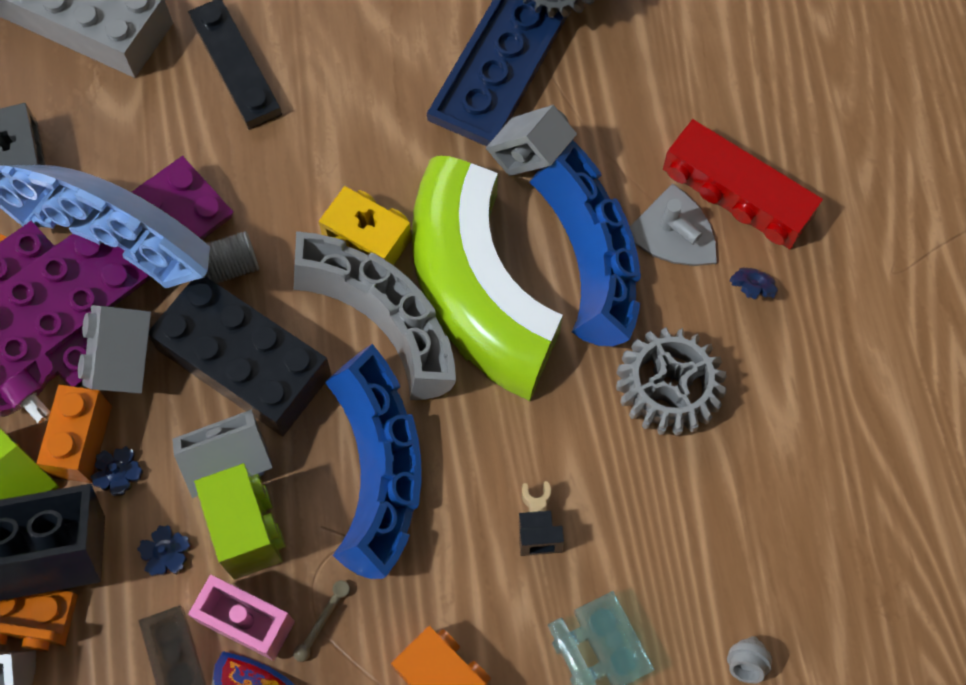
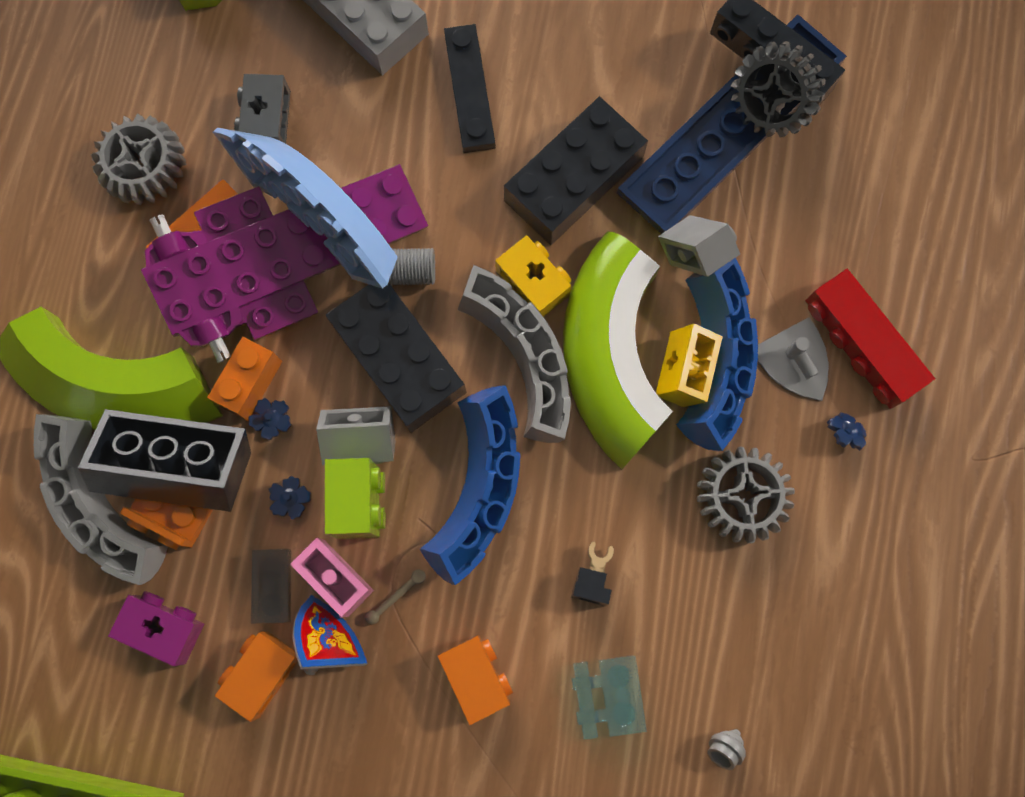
camera: 20 degrees right, 10 degrees up
(114, 349) = (295, 320): light grey brick -> none
(374, 110) = (575, 170): none -> black brick
(564, 266) = (689, 365): none -> yellow brick

